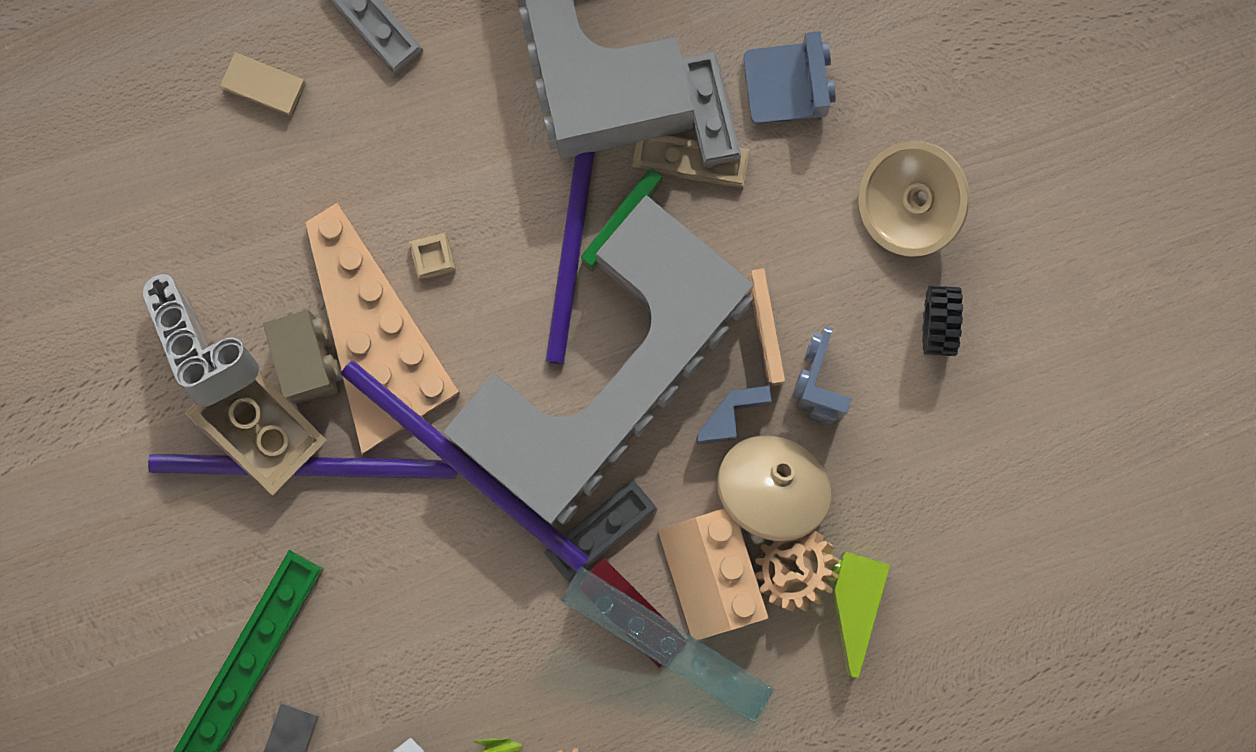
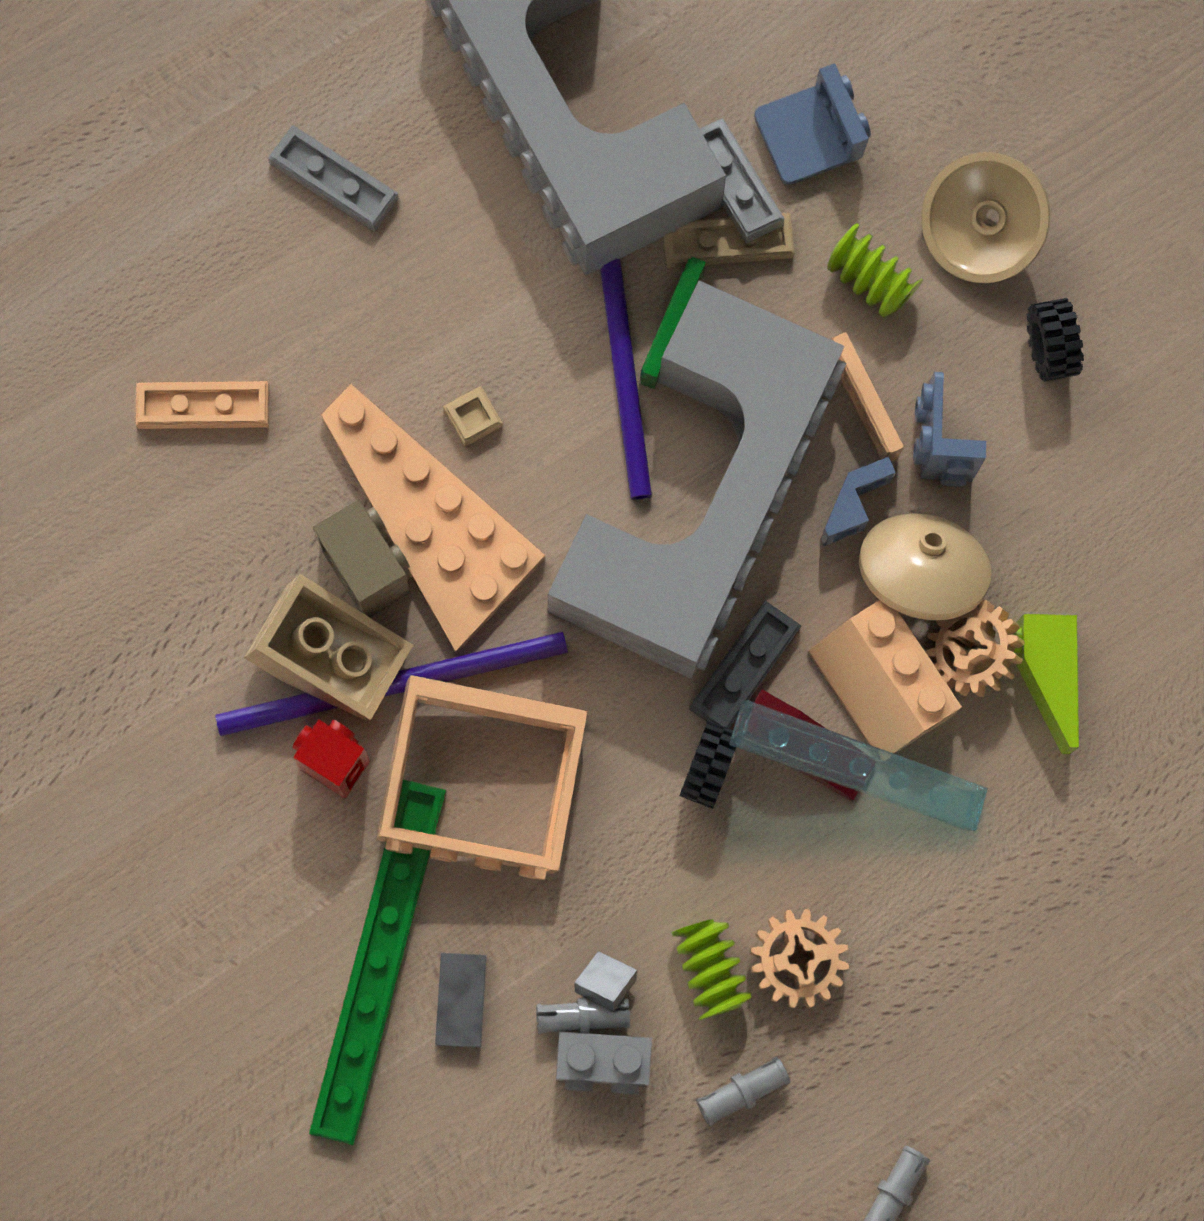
camera: 25 degrees left, 5 degrees down
(200, 369) = (262, 598): light grey beam -> none
(210, 187) = (202, 405): none -> light nougat tile
(230, 518) = (331, 756): none -> red brick
(262, 84) = (230, 277): tan tile -> none
(338, 634) = (498, 706): none -> light nougat window
(464, 465) = (576, 631): dark purple piece -> none
(542, 609) = (709, 765): none -> black tyre
(803, 220) = (872, 272): none -> lime piece

